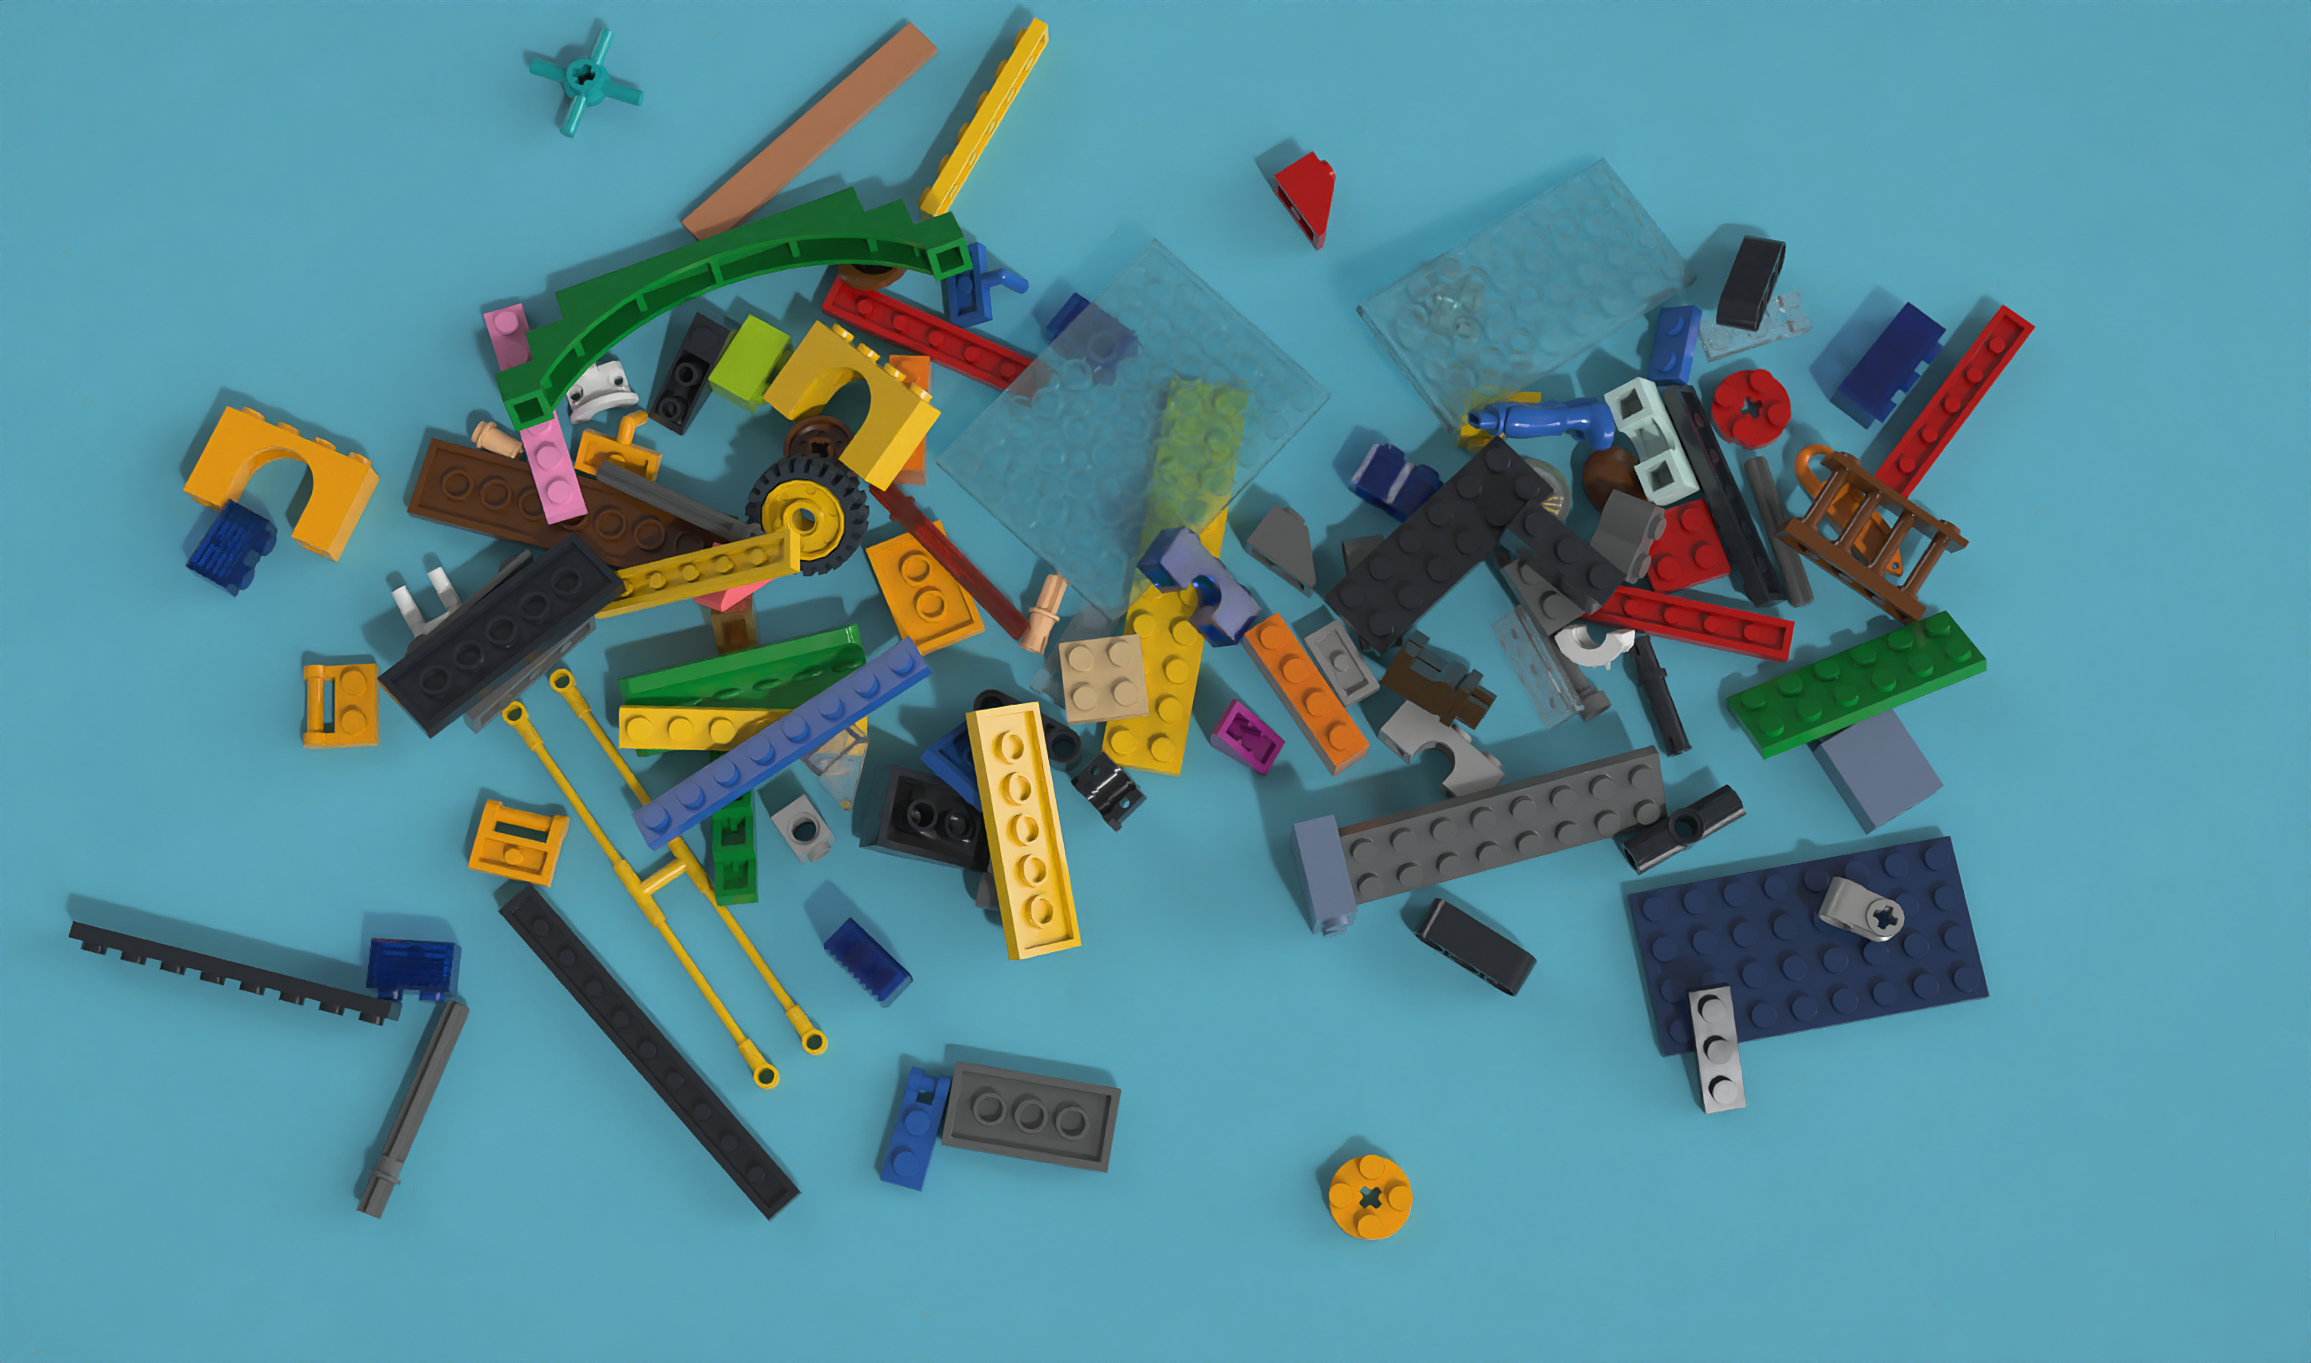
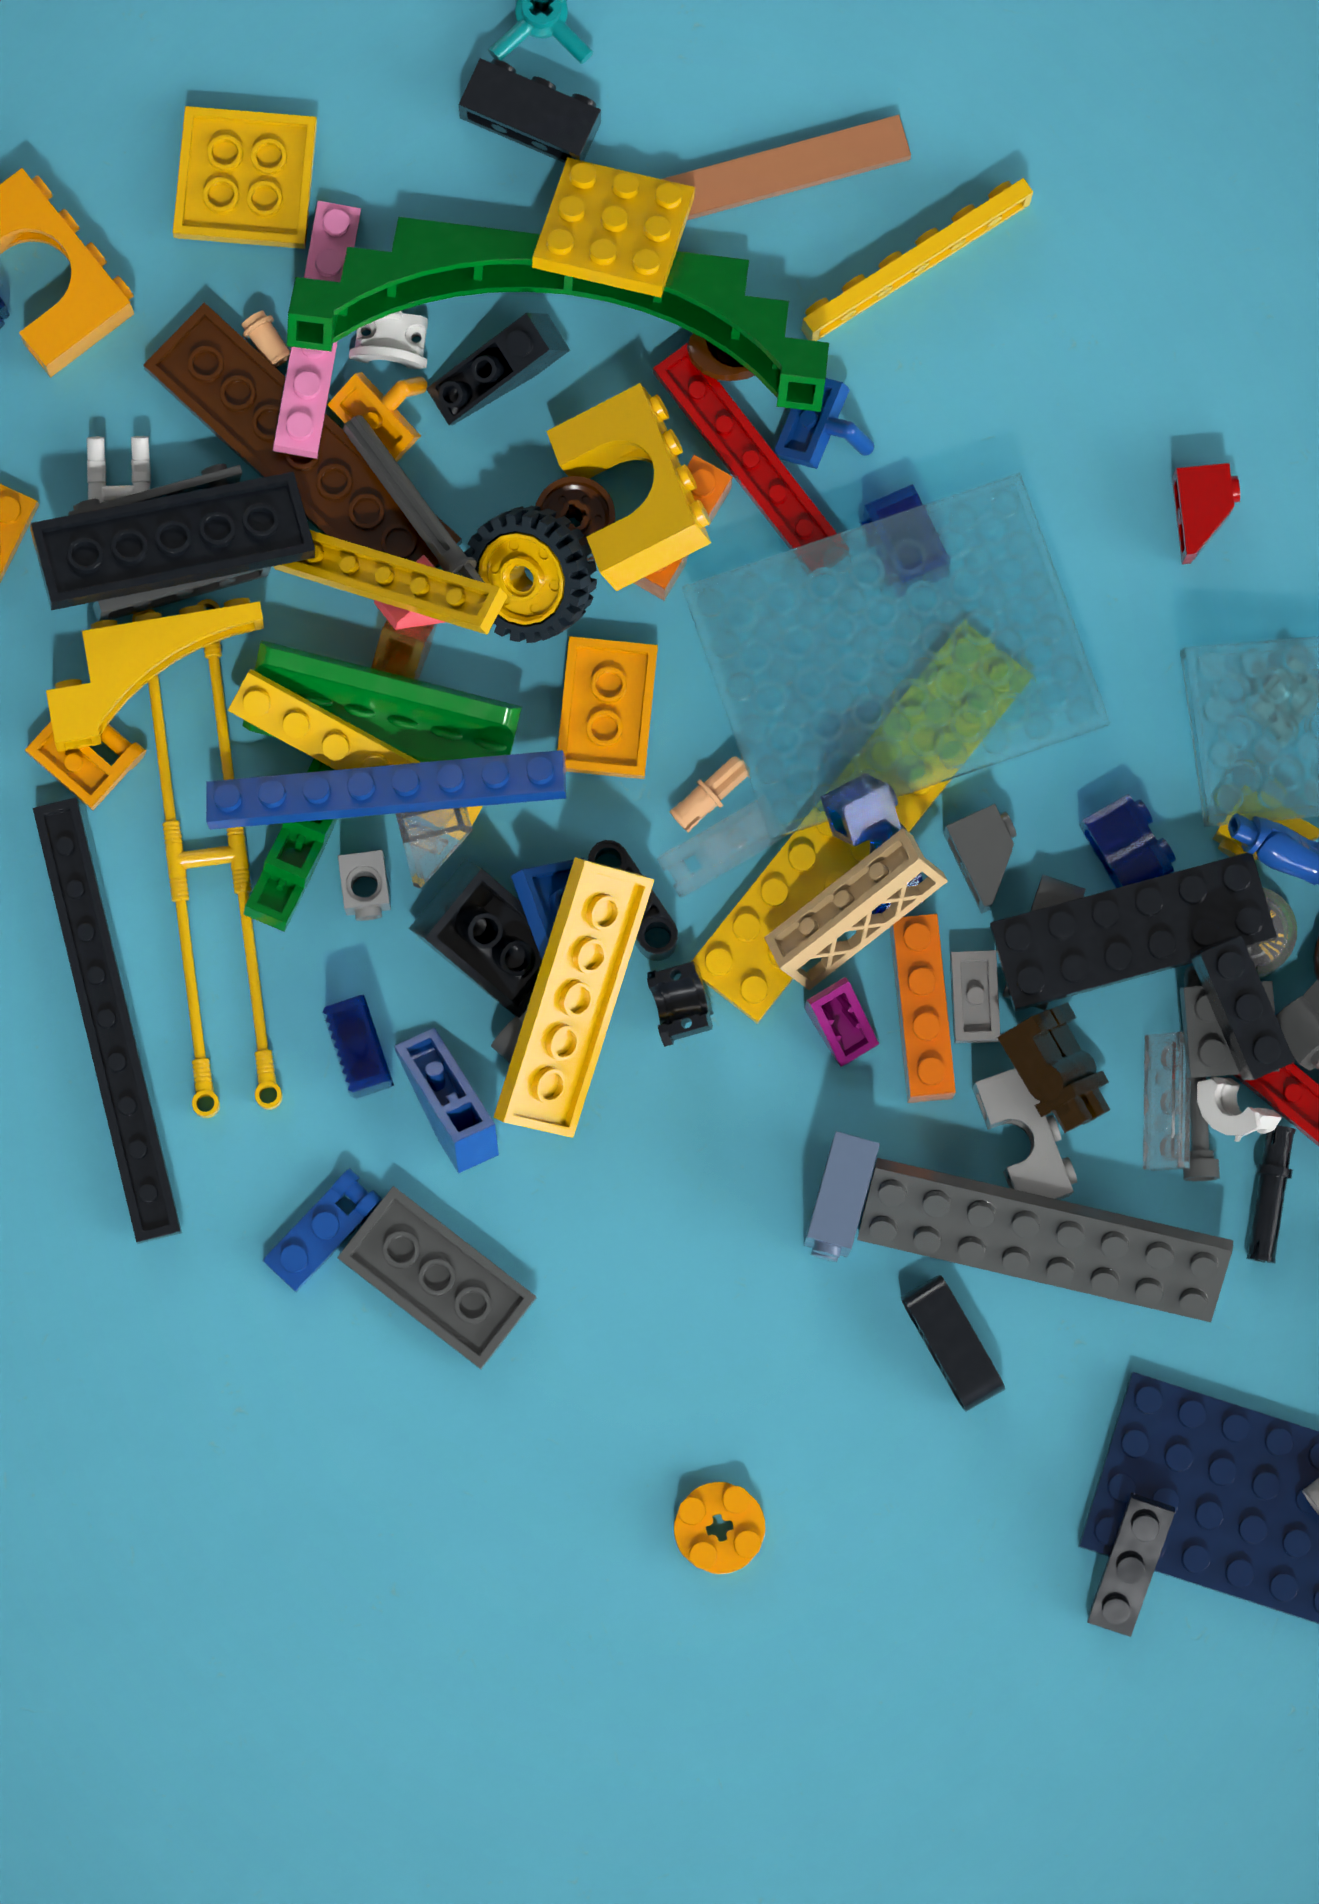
camera: 25 degrees right, 5 degrees up
(414, 326) = (245, 177): none -> yellow plate
(516, 744) = (132, 654): none -> yellow arch
(618, 162) = (529, 111): none -> black brick
(731, 213) = (613, 227): none -> yellow plate
(751, 364) = (555, 390): lime brick -> none
(954, 562) = (647, 692): clear red axle -> none
(965, 968) = (448, 1101): none -> blue slope
(1103, 679) = (732, 890): tan plate -> none
(1206, 640) = (849, 907): none -> tan fence
(1703, 816) = (1249, 1335): black piece -> none

